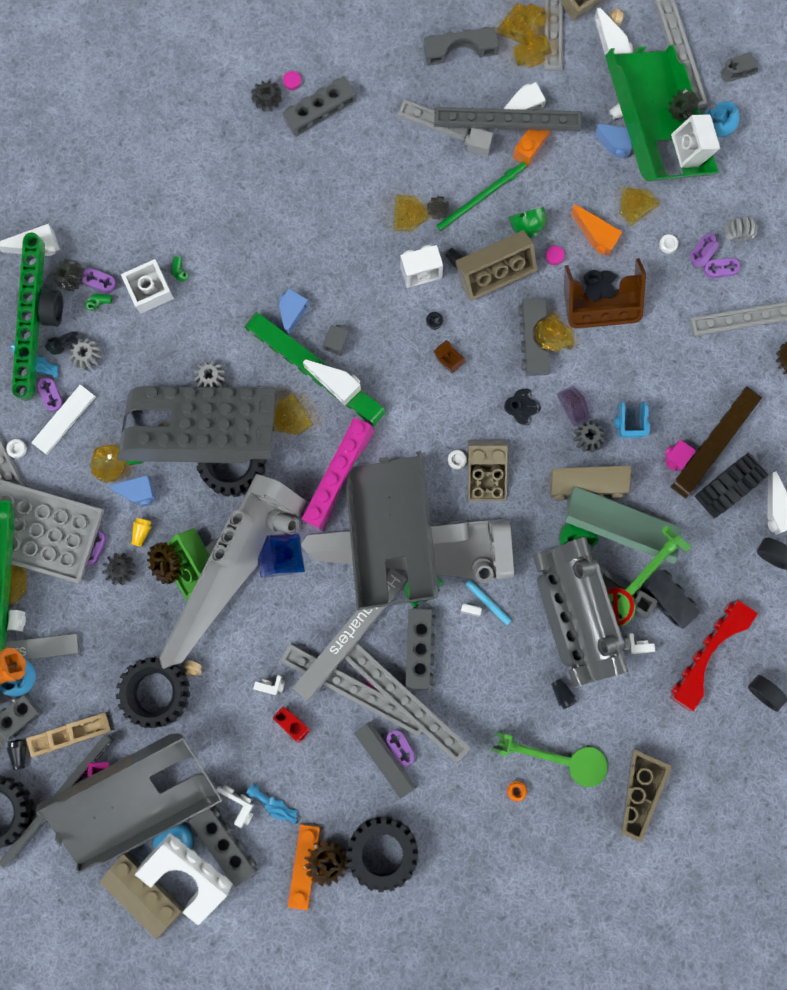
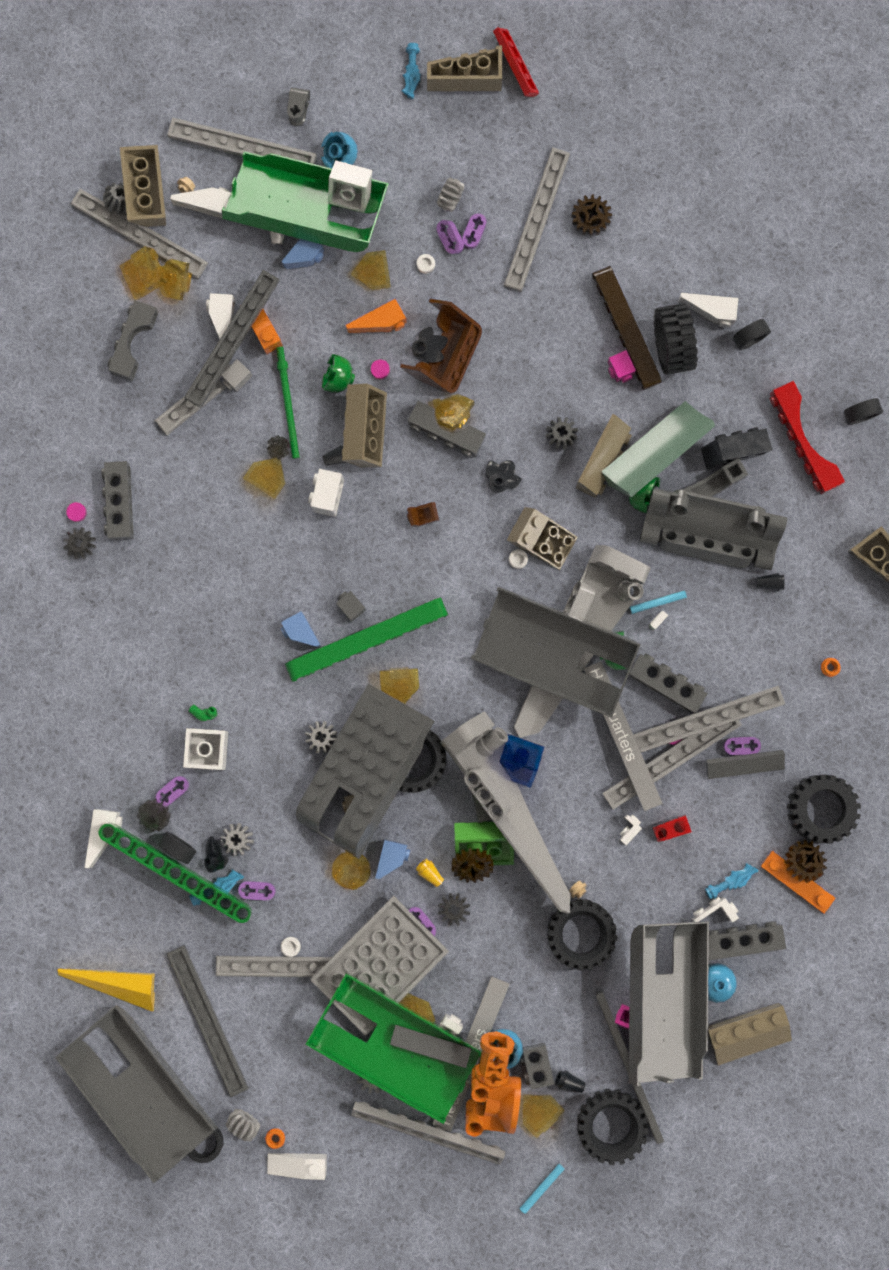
camera: 60 degrees left, 5 degrees up
(63, 419) = (287, 890): white tile -> none
(68, 735) = (577, 1029): tan slope -> none
(96, 300) = (190, 803): green arm -> none
(174, 855) = (733, 987): white arch -> none
(325, 497) = (475, 670): dark pink arch -> none
(336, 381) = (395, 625): white slope -> none
(434, 326) = (375, 506): black bush -> none
(574, 405) = (526, 430): clear purple slope -> none
(586, 764) = (842, 598): bright green piece -> none
(619, 421) = (564, 399): dark azure piece -> none
(622, 600) = (721, 487): bright green piece -> none
(641, 647) = (767, 494): white bracket -> none
(683, 105) = (304, 180): clear smoke gear -> none

